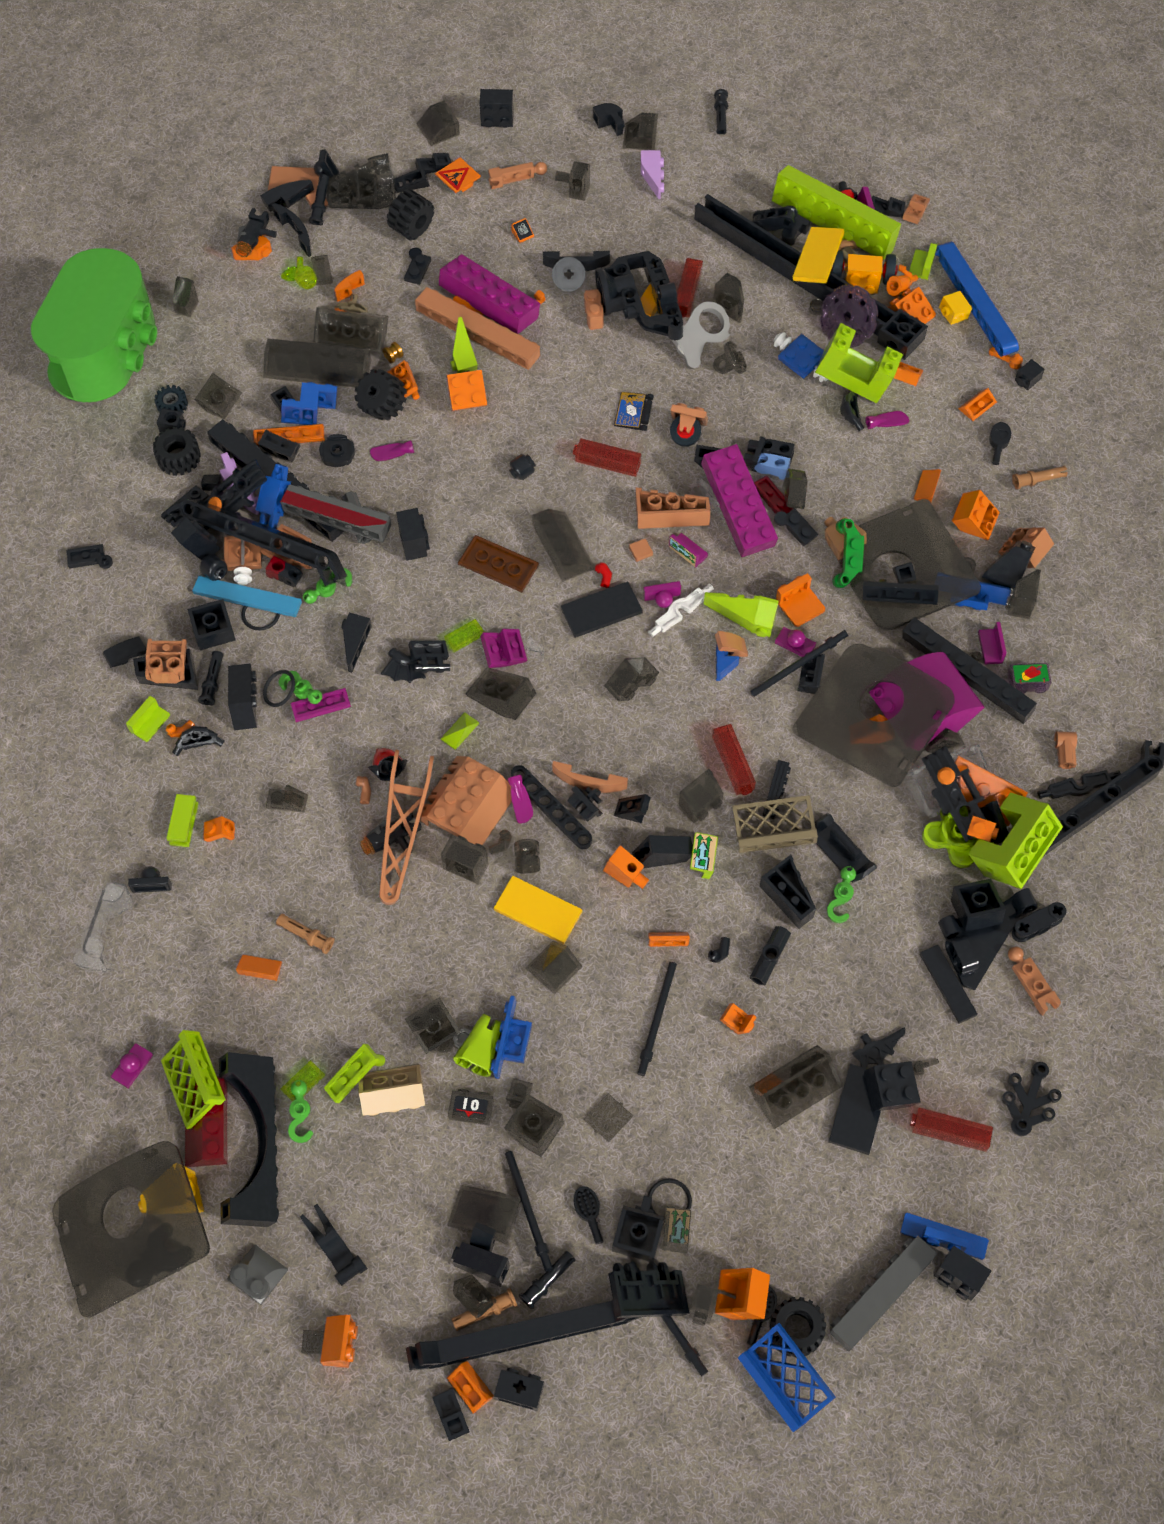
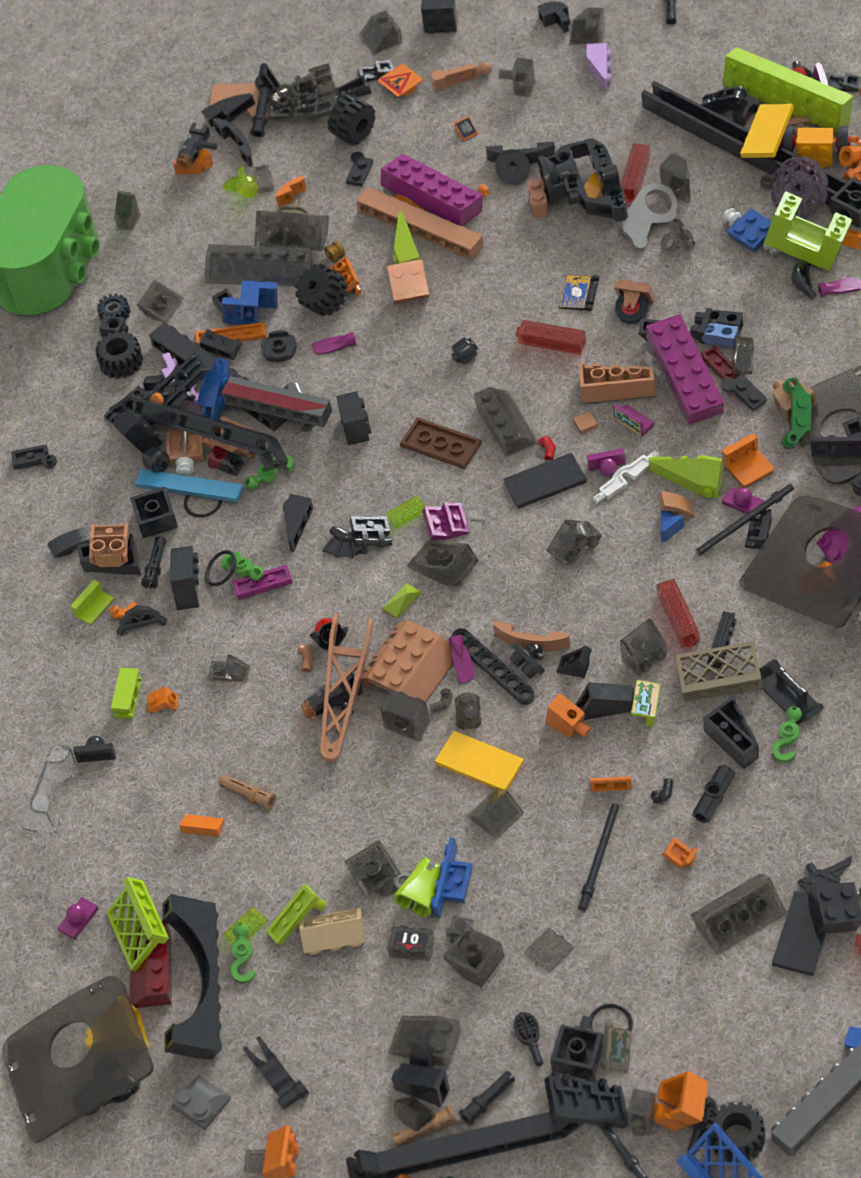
camera: 10 degrees right, 10 degrees down
(541, 1248) = (480, 1067): black bar -> none

